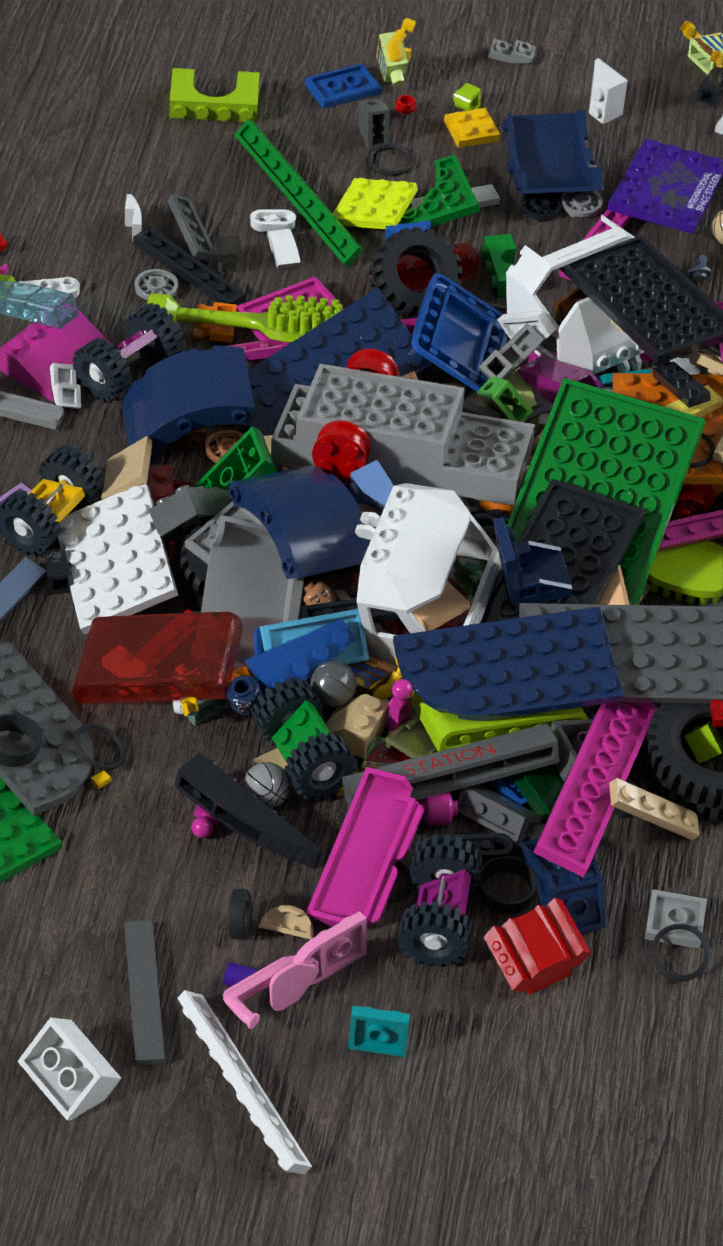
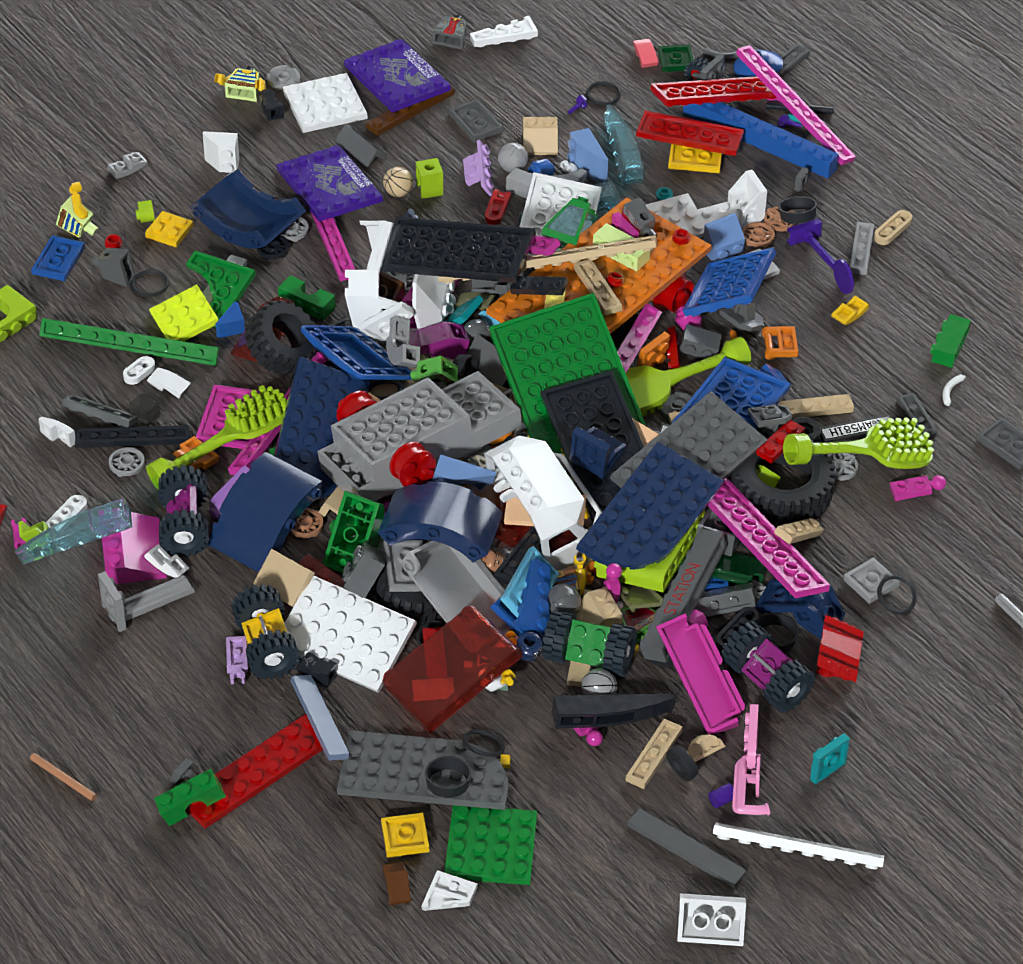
camera: 45 degrees left, 0 degrees up
(218, 888) = (654, 753): none -> tan plate

